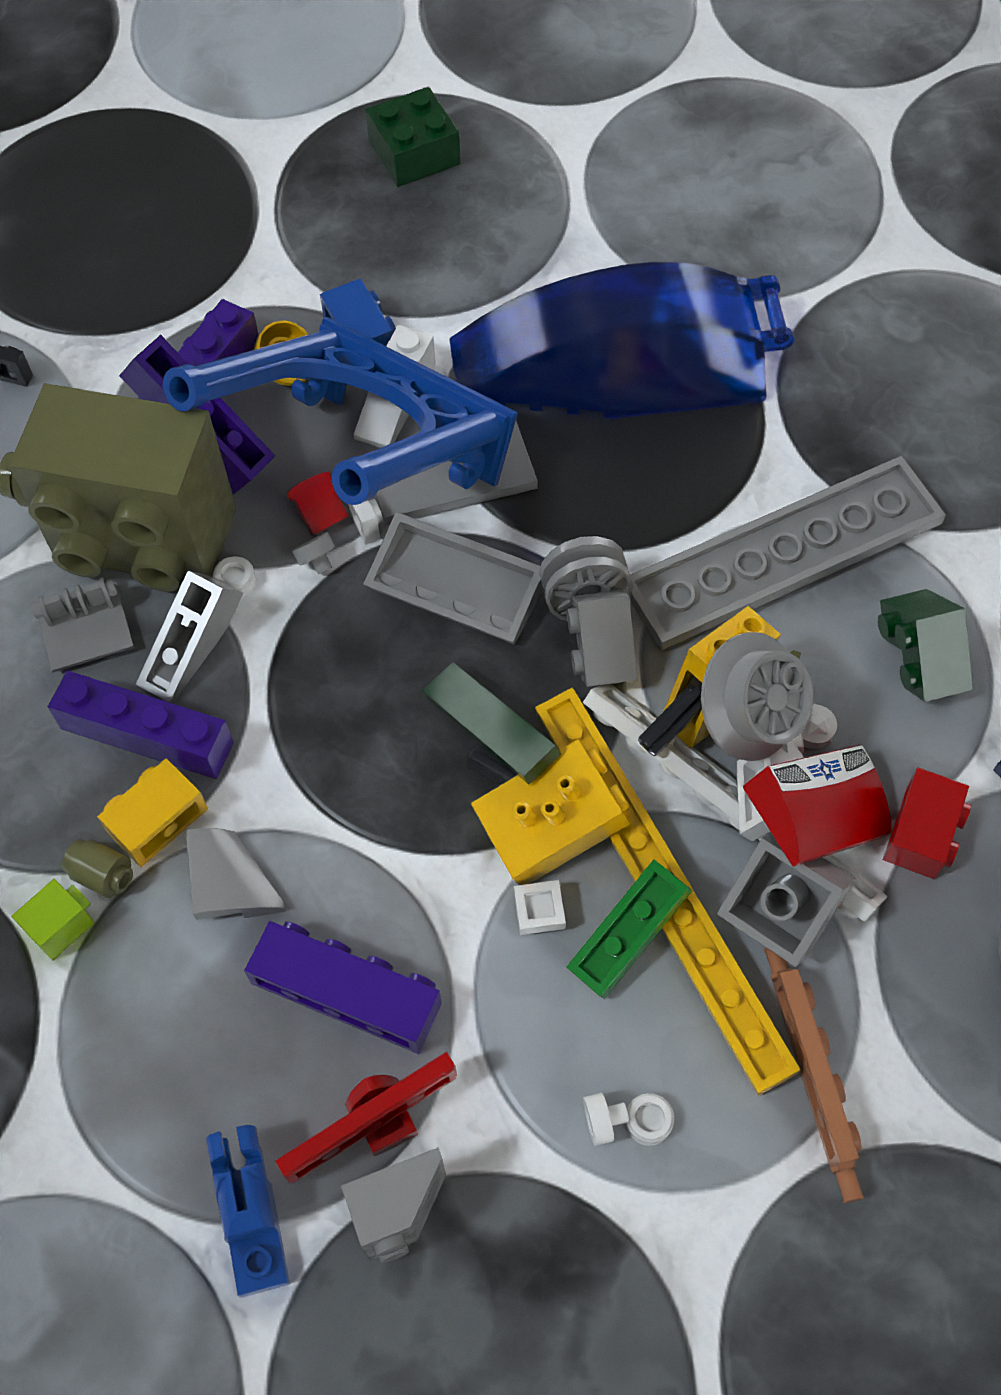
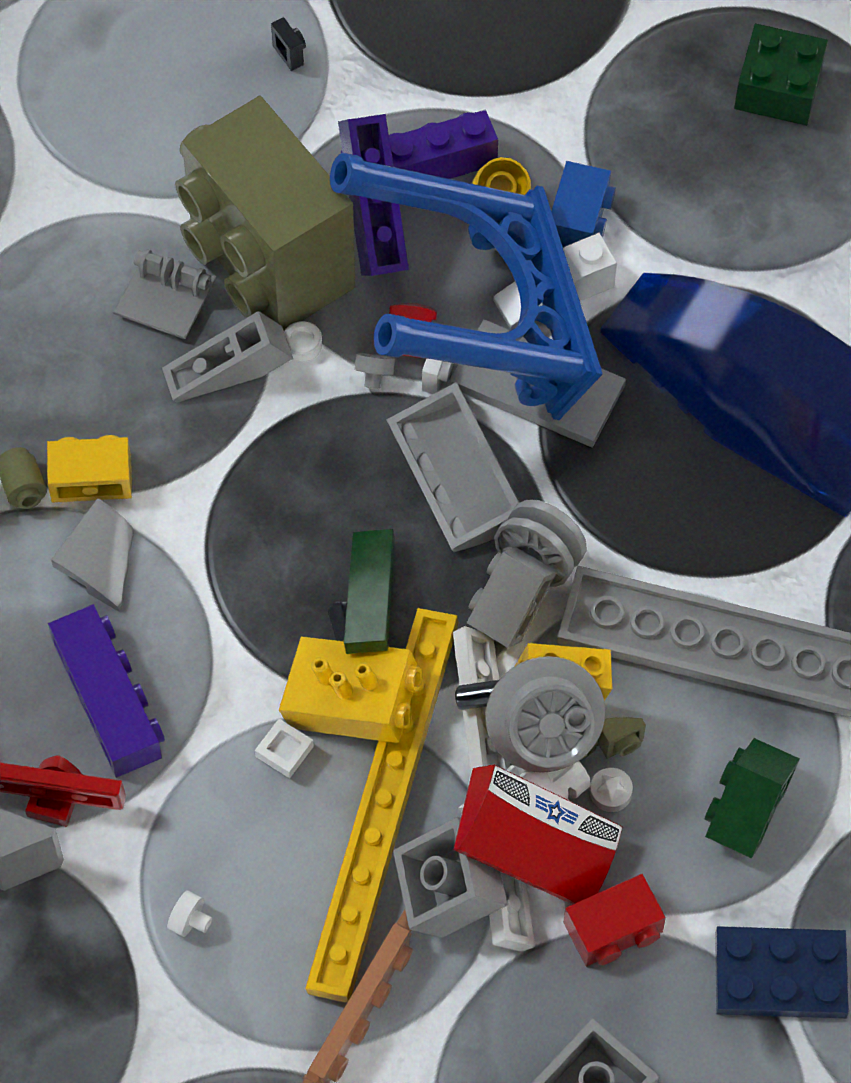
camera: 40 degrees right, 0 degrees up
(141, 724) = (136, 401): dark purple brick -> none
(629, 929) = (325, 810): green plate -> none
(649, 1119) = (221, 945): white tile -> none

